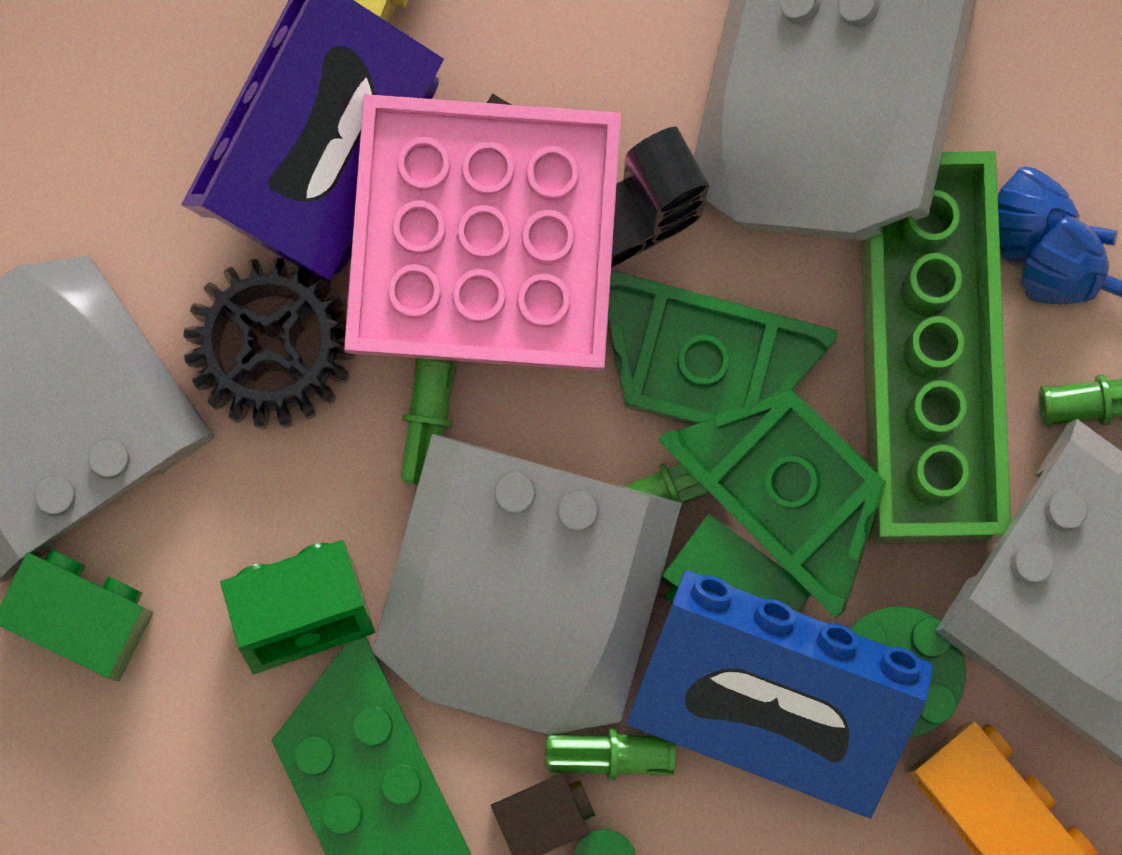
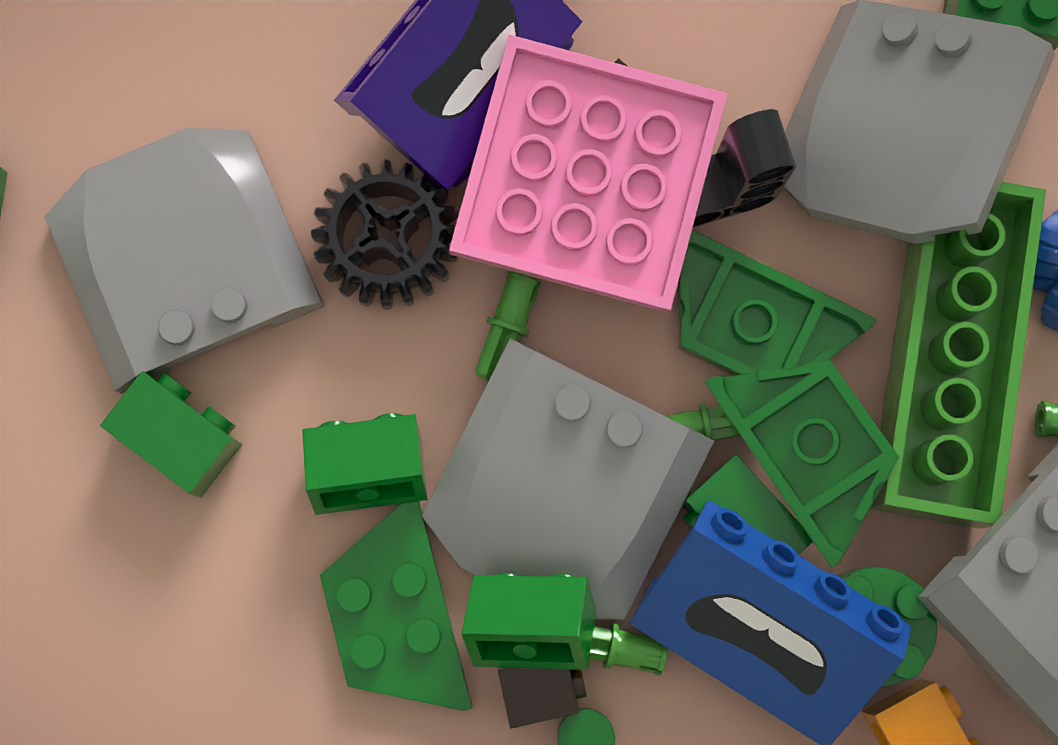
camera: 10 degrees right, 0 degrees up
(515, 743) = (529, 621): none -> green brick

